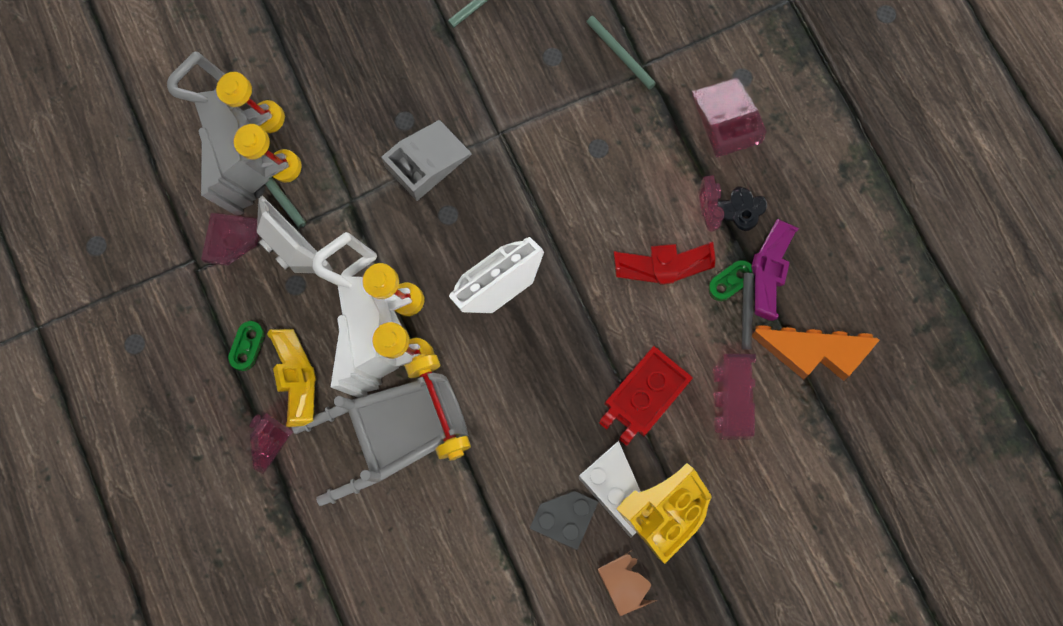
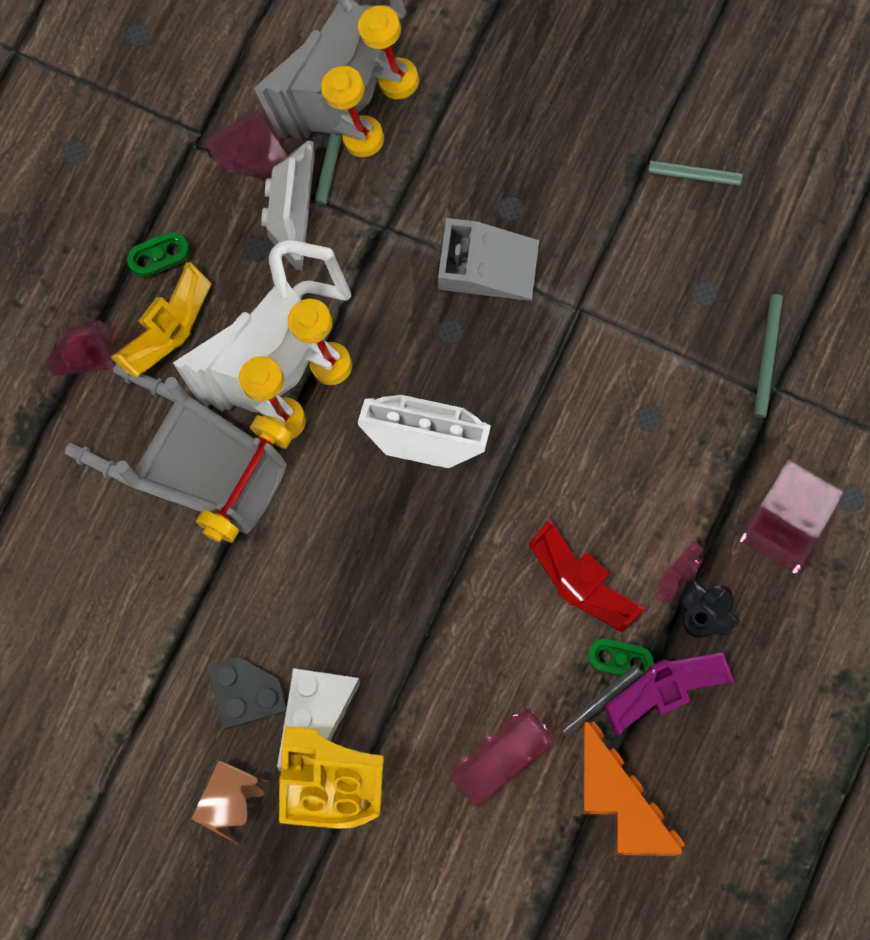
camera: 45 degrees right, 0 degrees up
(645, 394) = (431, 669): red tile -> none

